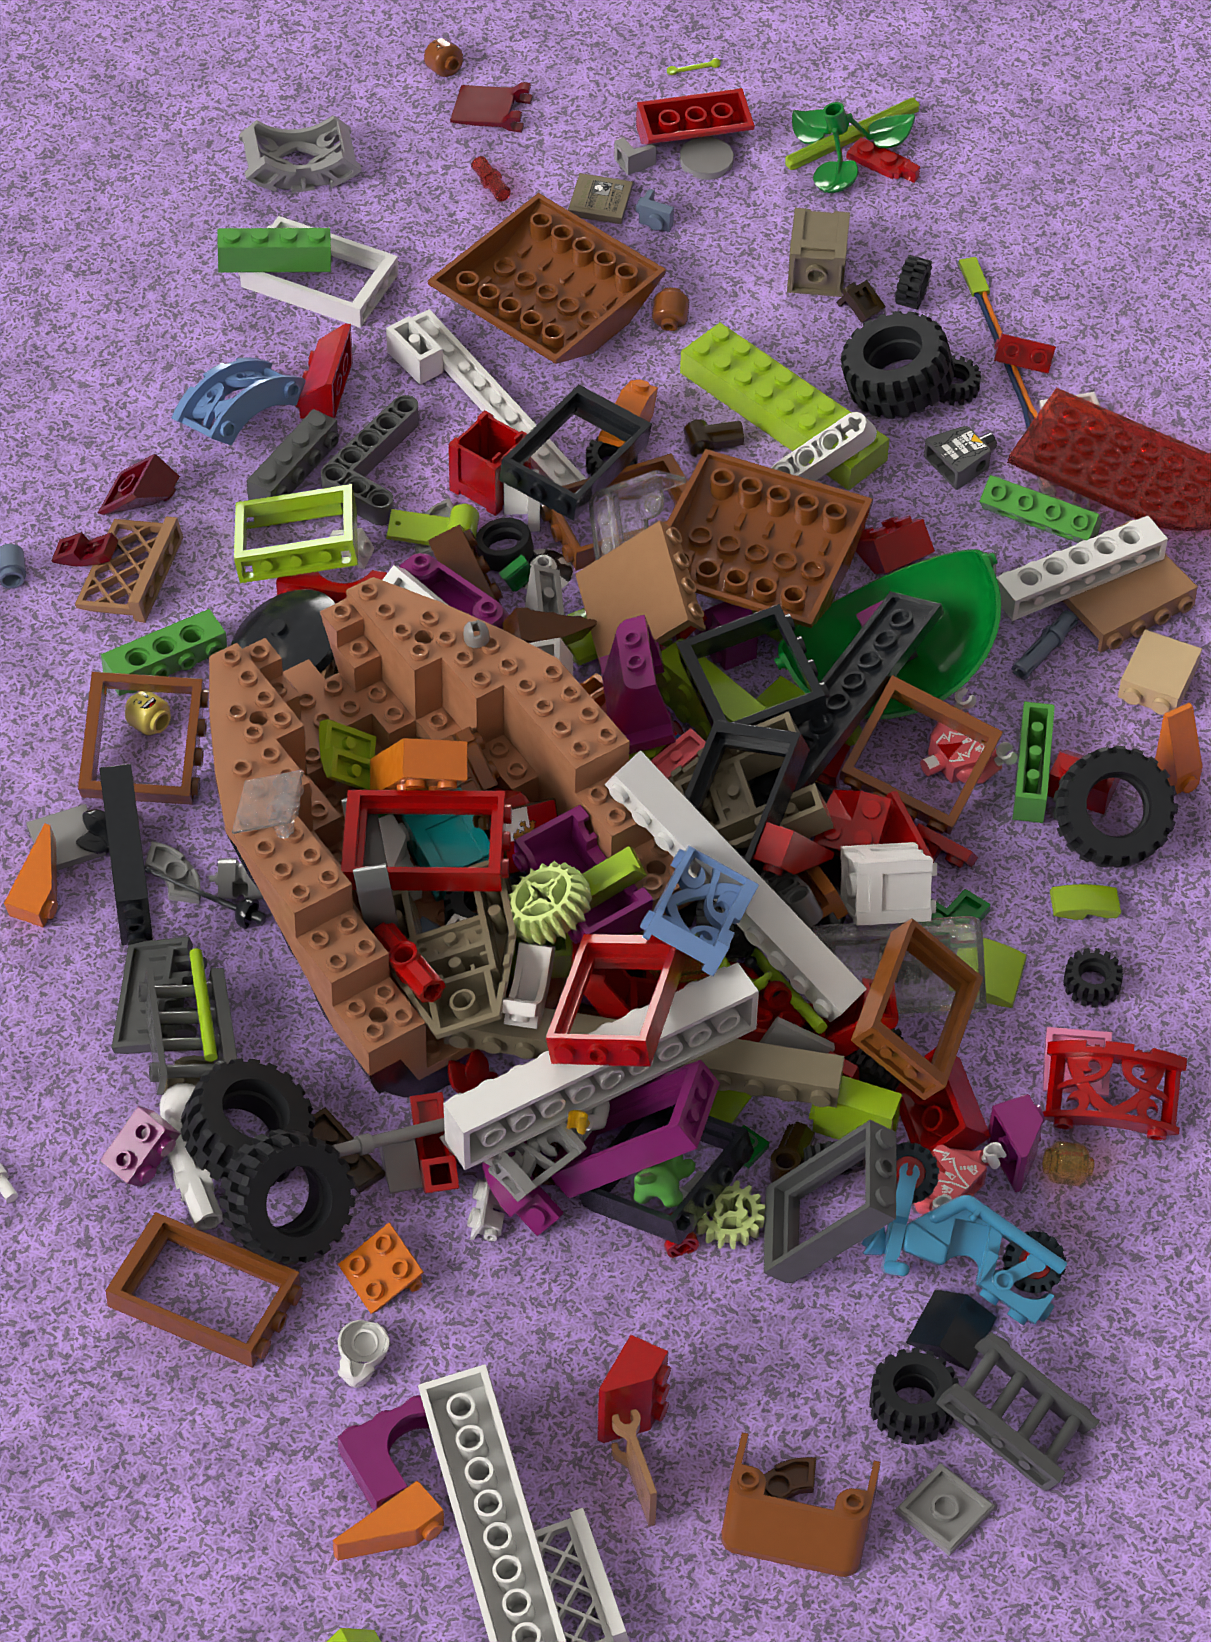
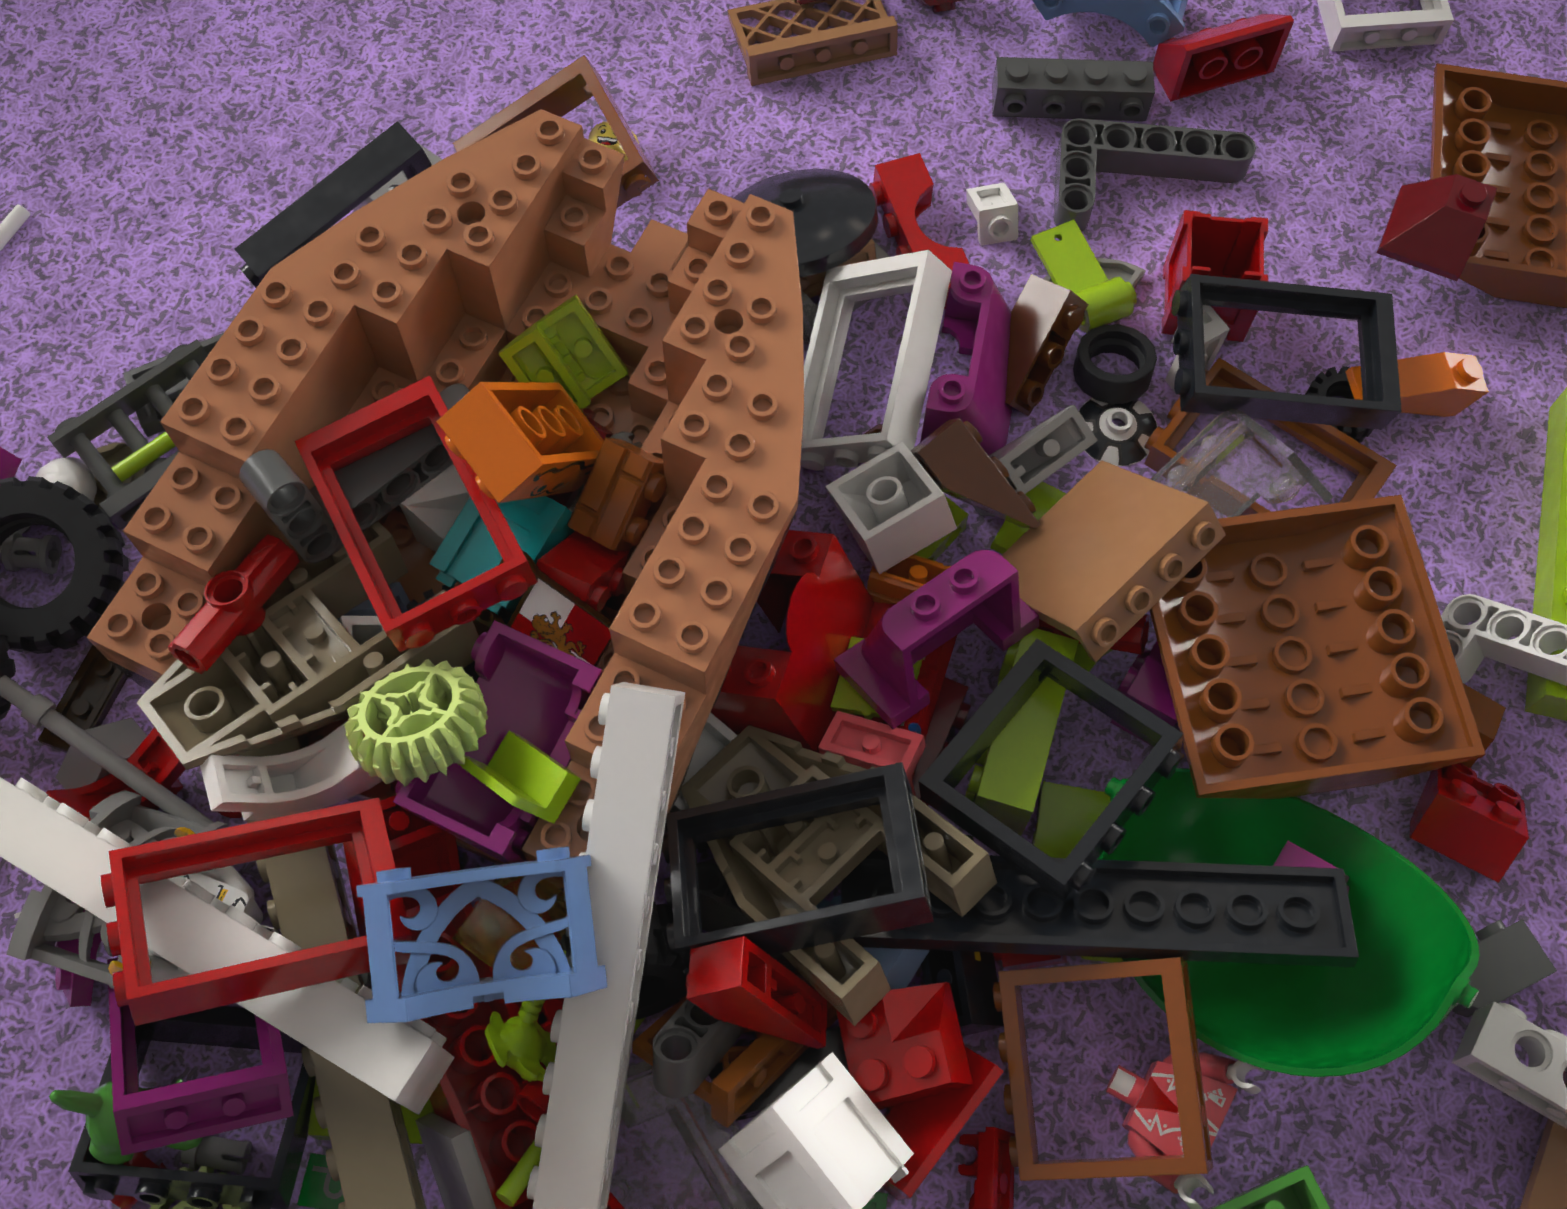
camera: 60 degrees right, 15 degrees up
(35, 888) = (287, 177): orange slope -> none
(168, 649) = (709, 121): bright green brick -> none
(270, 803) = (302, 290): clear hinge -> none
(299, 556) = (949, 200): lime window -> none
(414, 350) = (1331, 113): white brick -> none
(476, 641) = (765, 380): light grey hinge -> none
(494, 399) = (1330, 232): white plate -> none
(516, 573) = (1082, 396): green tile -> none
(541, 342) = (1437, 223): none -> dark red slope
(714, 436) = (1465, 492): dark brown piece -> none
(1052, 636) = (1472, 1130): sand blue pin -> none

